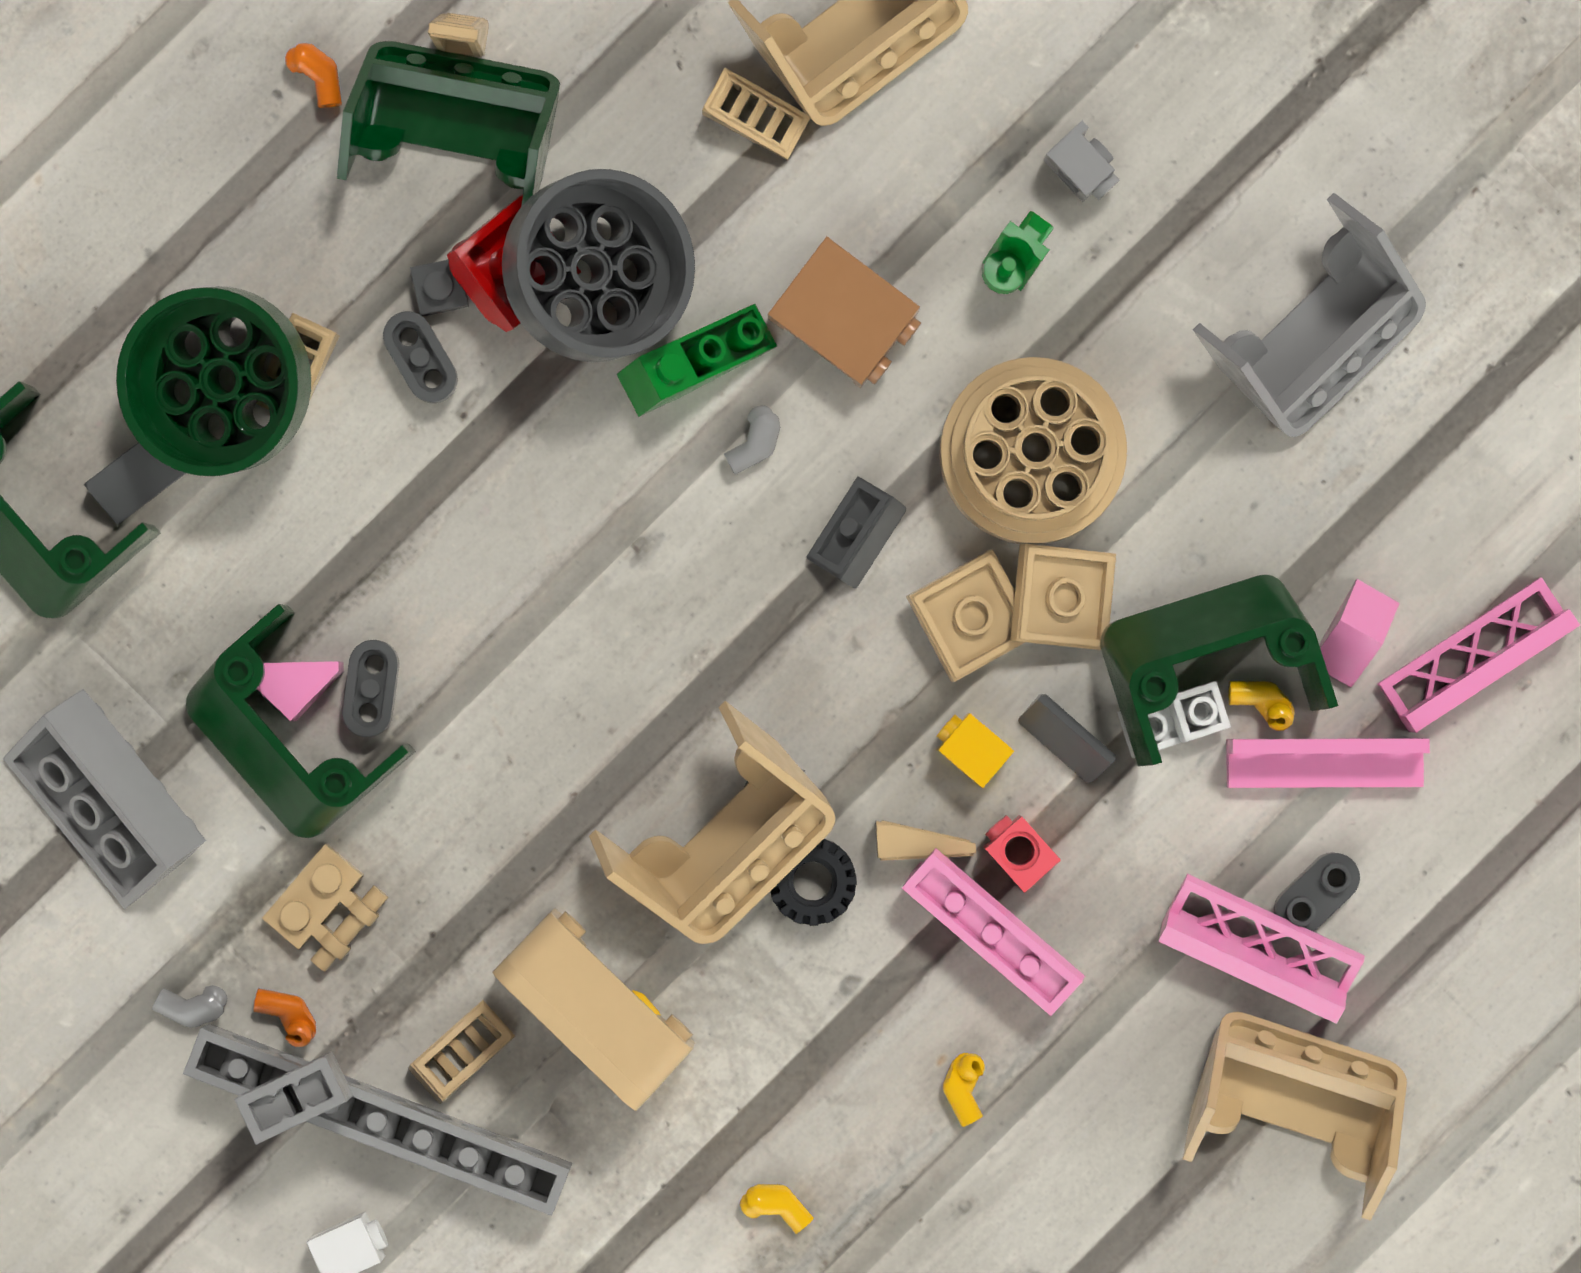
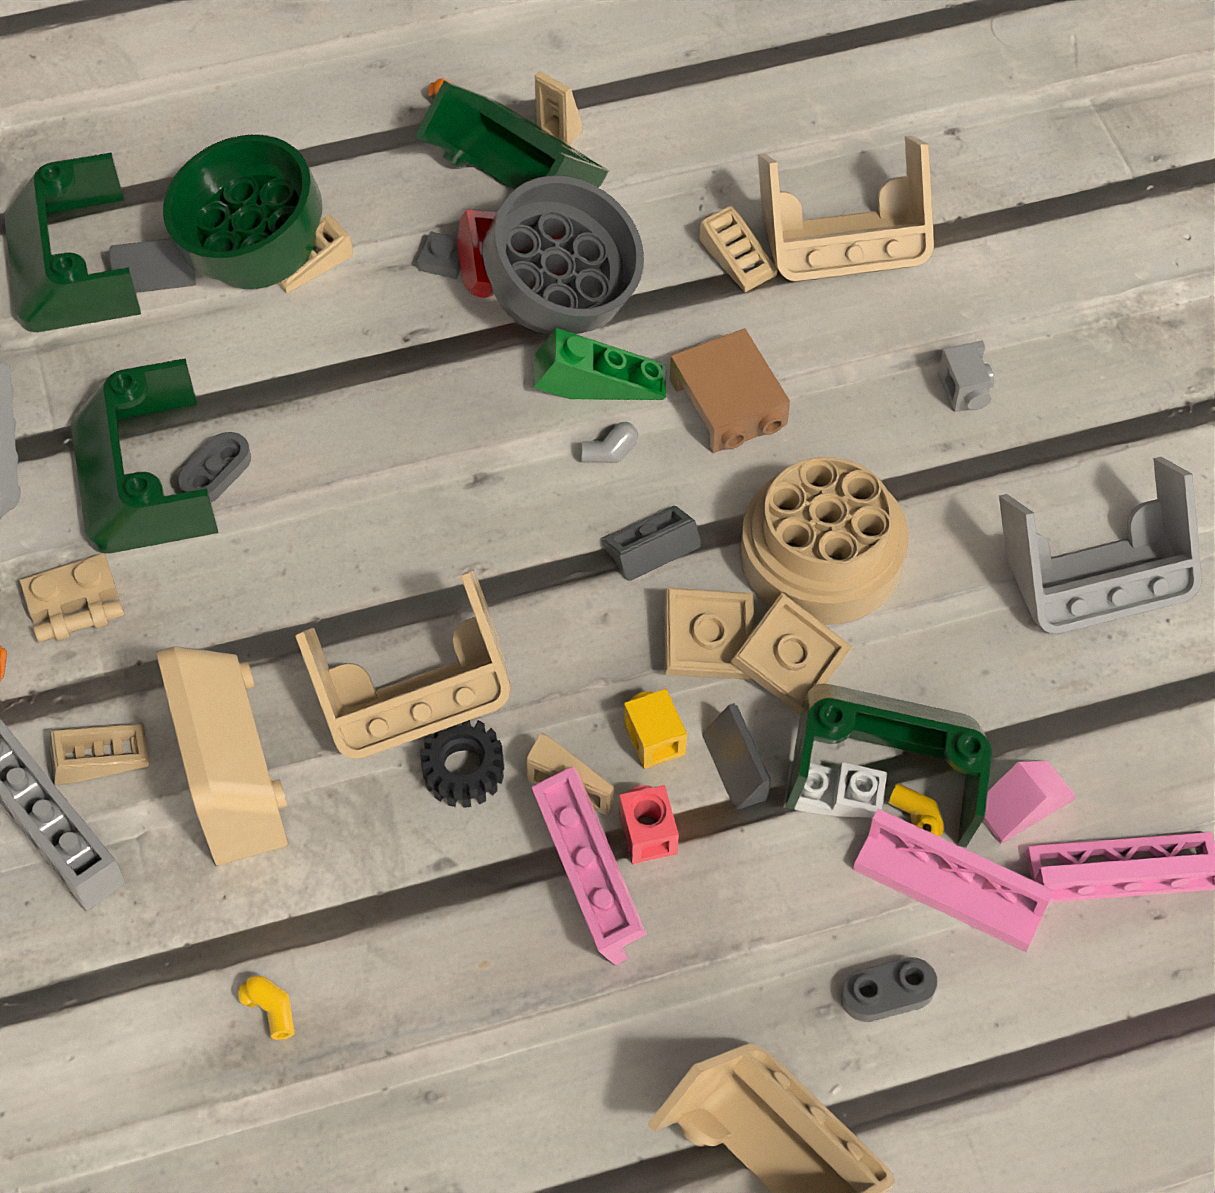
camera: 30 degrees right, 30 degrees down
(297, 685) = (165, 437): bright pink slope -> none
(420, 358) = (398, 287): dark grey plate -> none
(960, 1084) = (488, 987): yellow arm -> none
(1016, 254) = (884, 401): green hips -> none
(1256, 964) = (804, 1014): bright pink fence -> none

